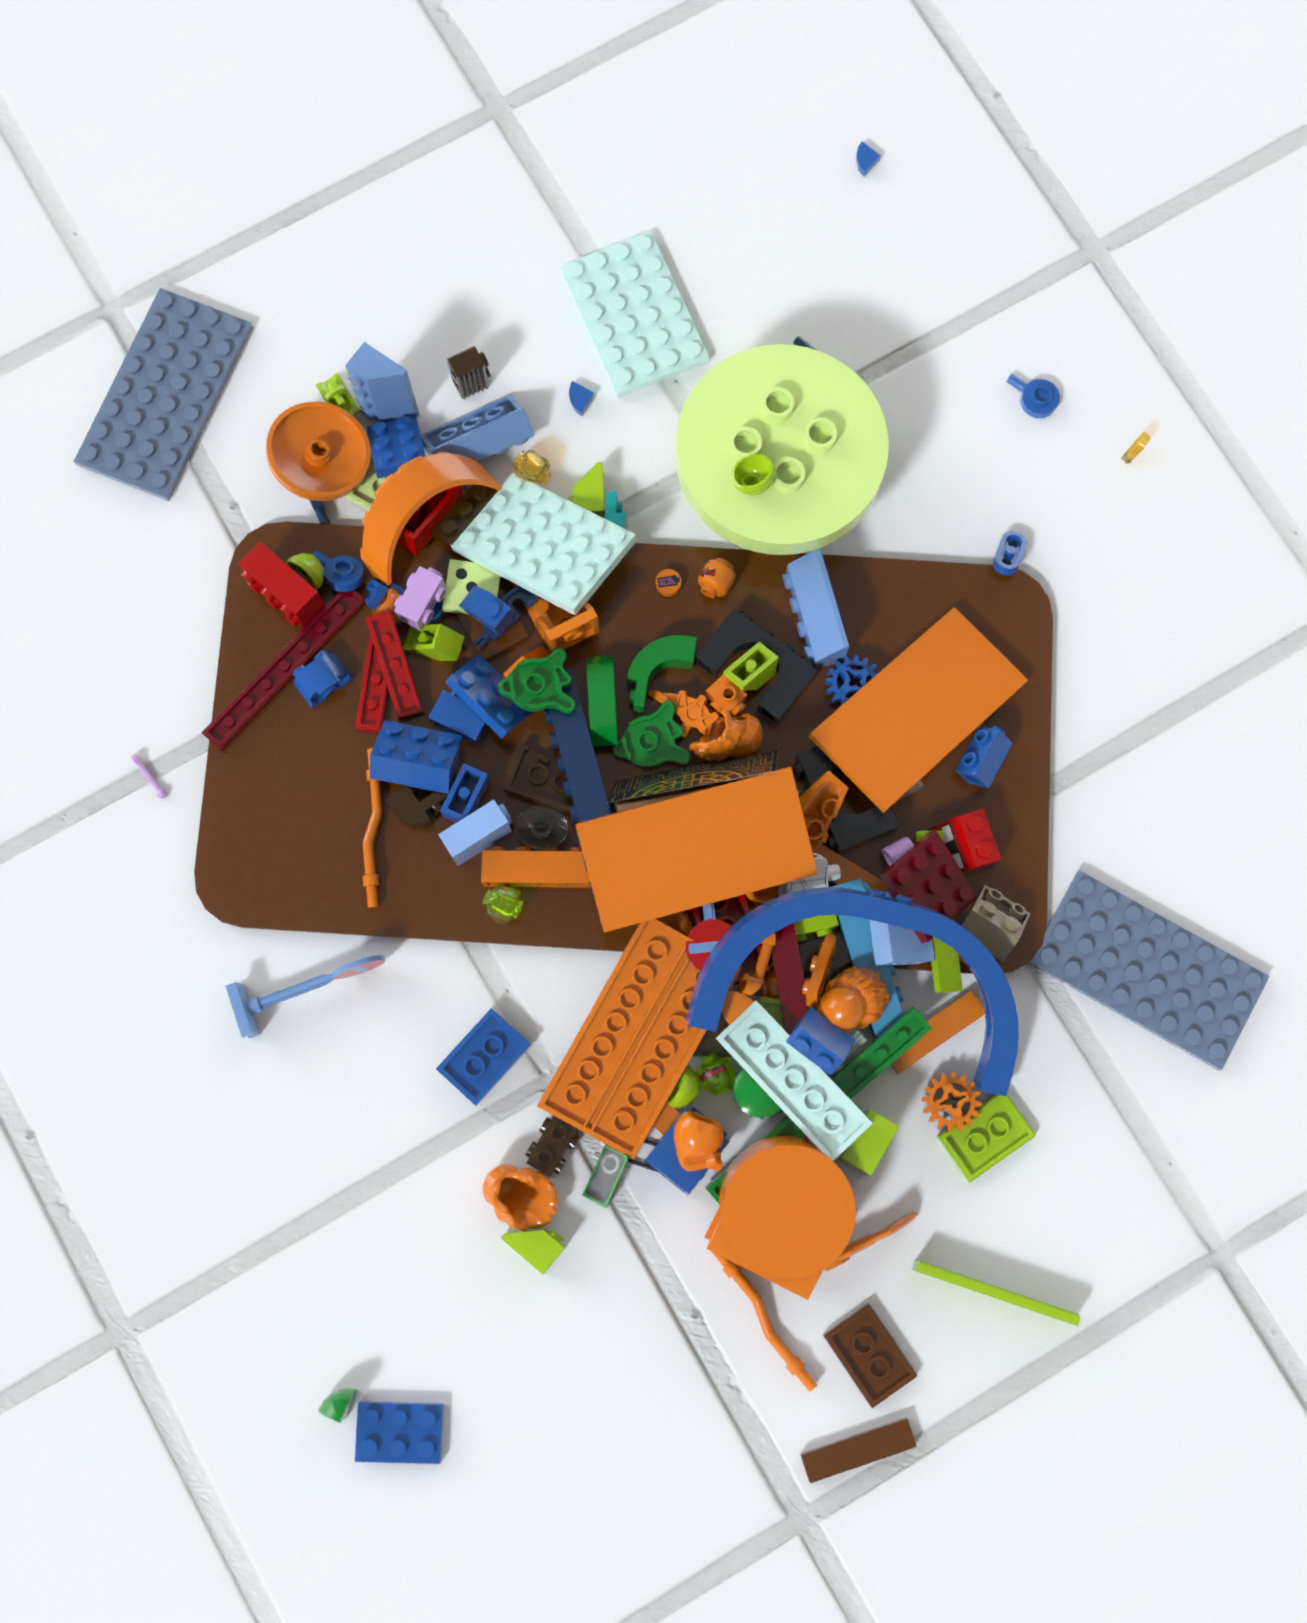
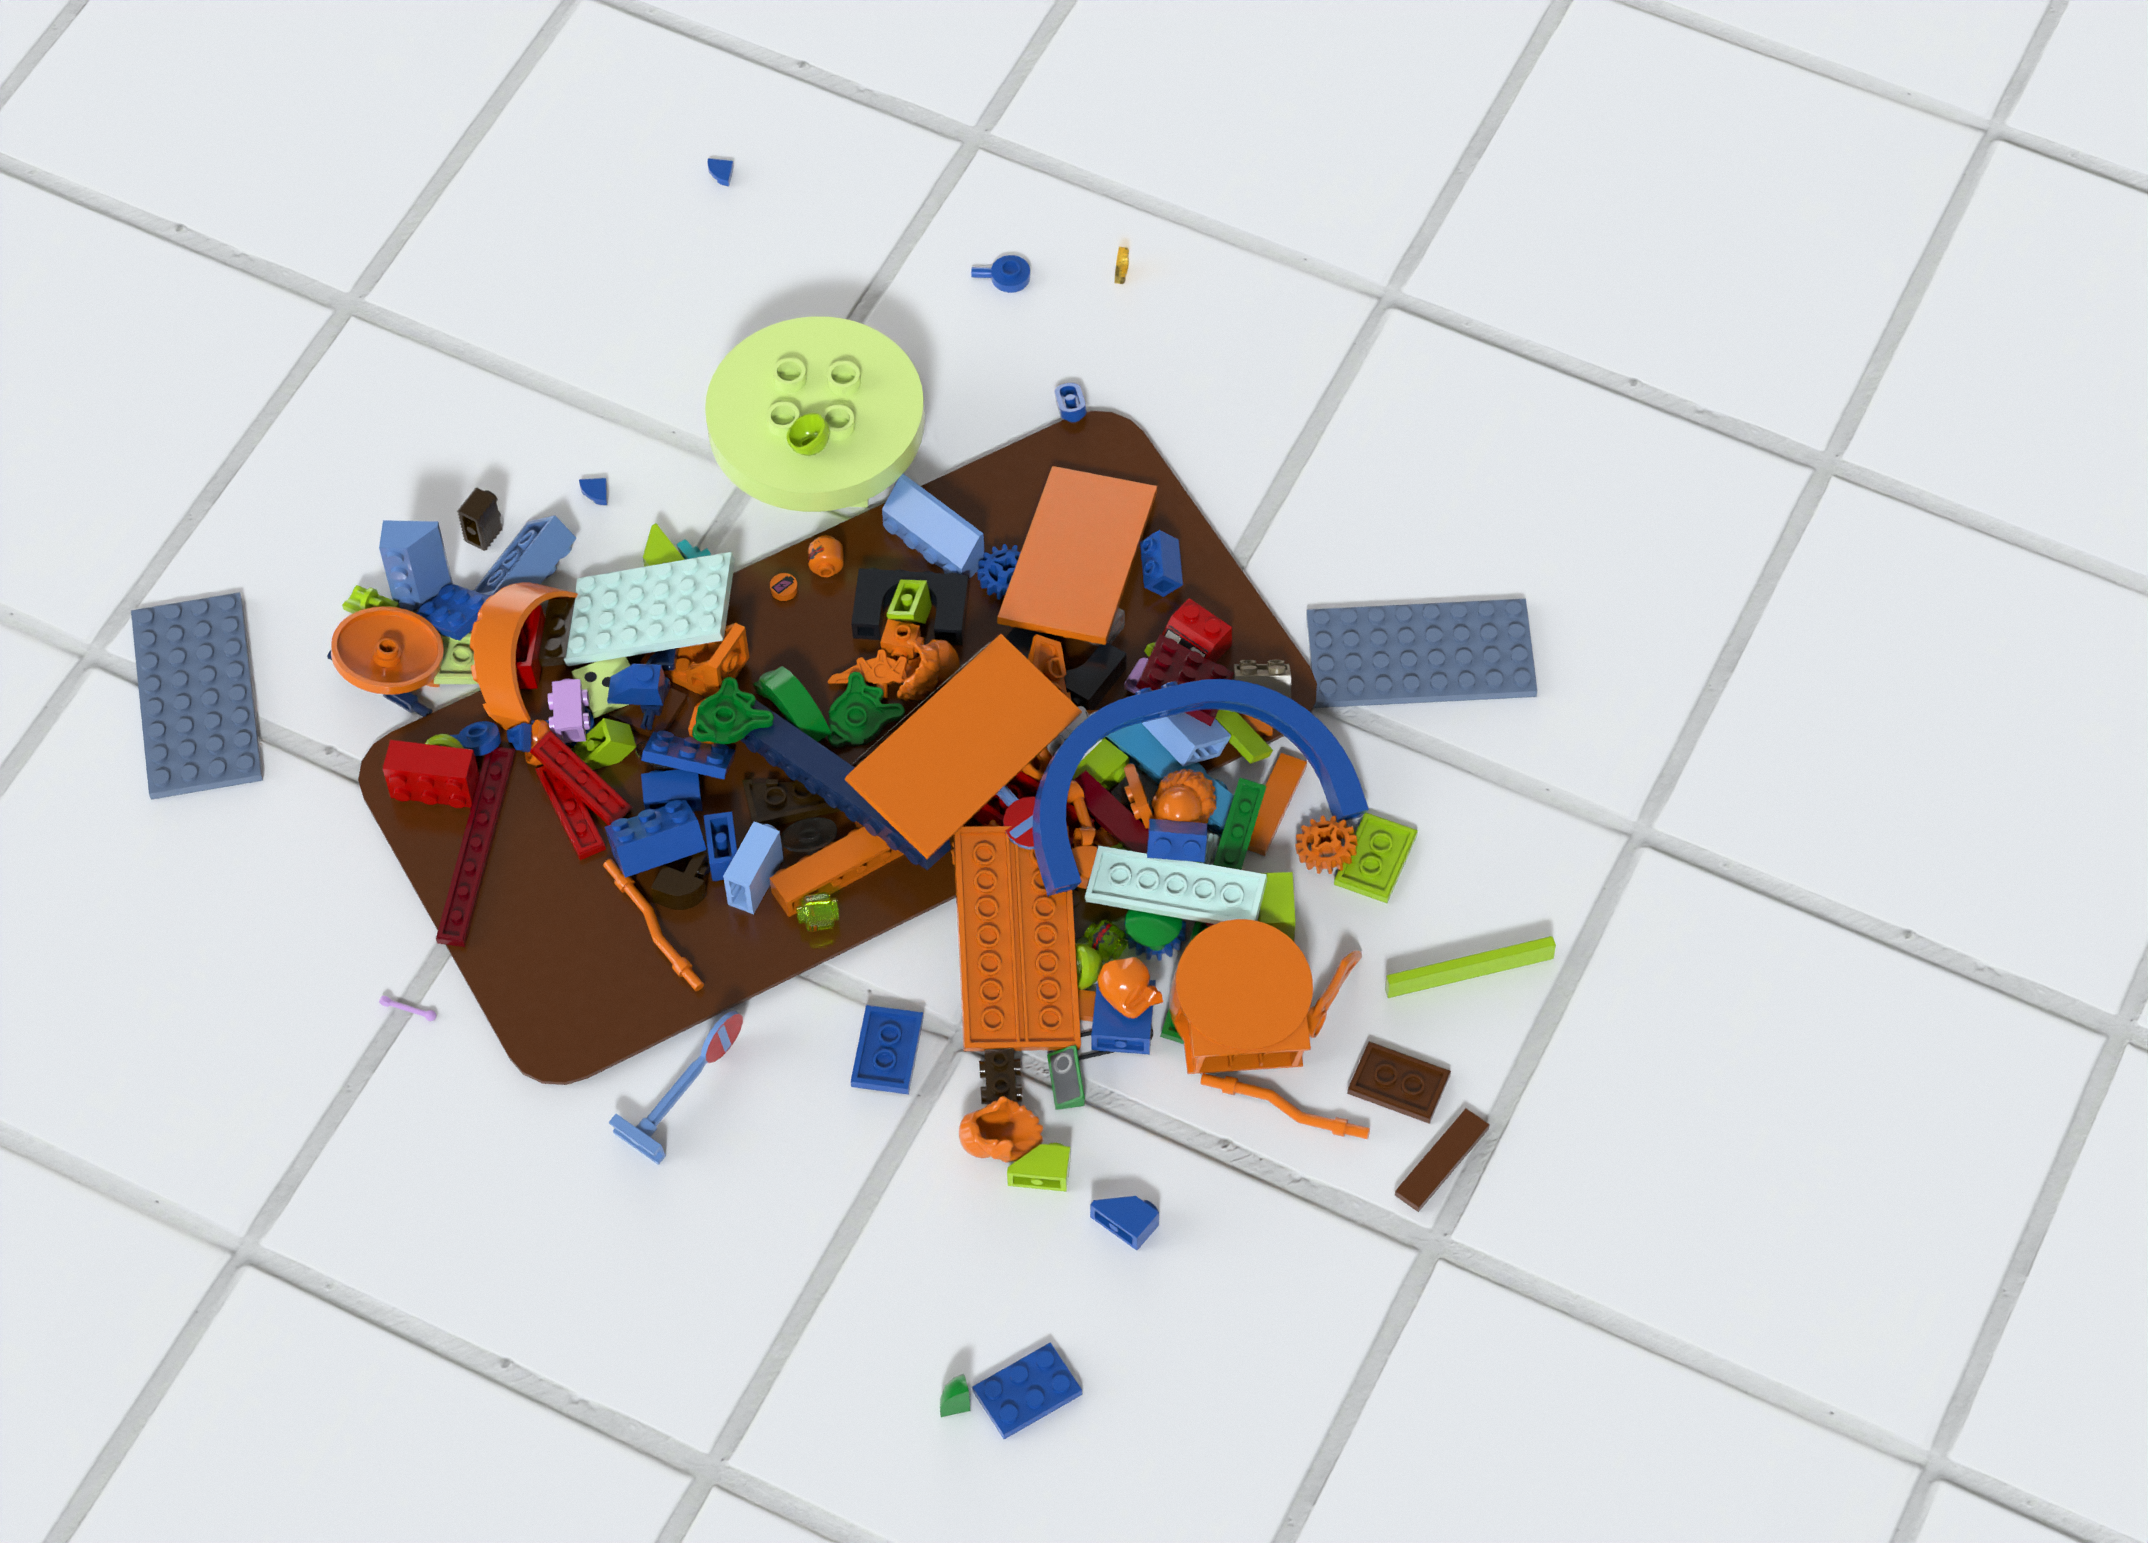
camera: 30 degrees left, 20 degrees down
(321, 677) = (517, 835): blue cylinder -> none
(532, 467) = (592, 563): clear yellow head -> none
(572, 1337) = (1126, 1218): none -> blue slope
(634, 314) = (597, 399): light aqua plate -> none
(658, 655) = (818, 643): green arch -> none

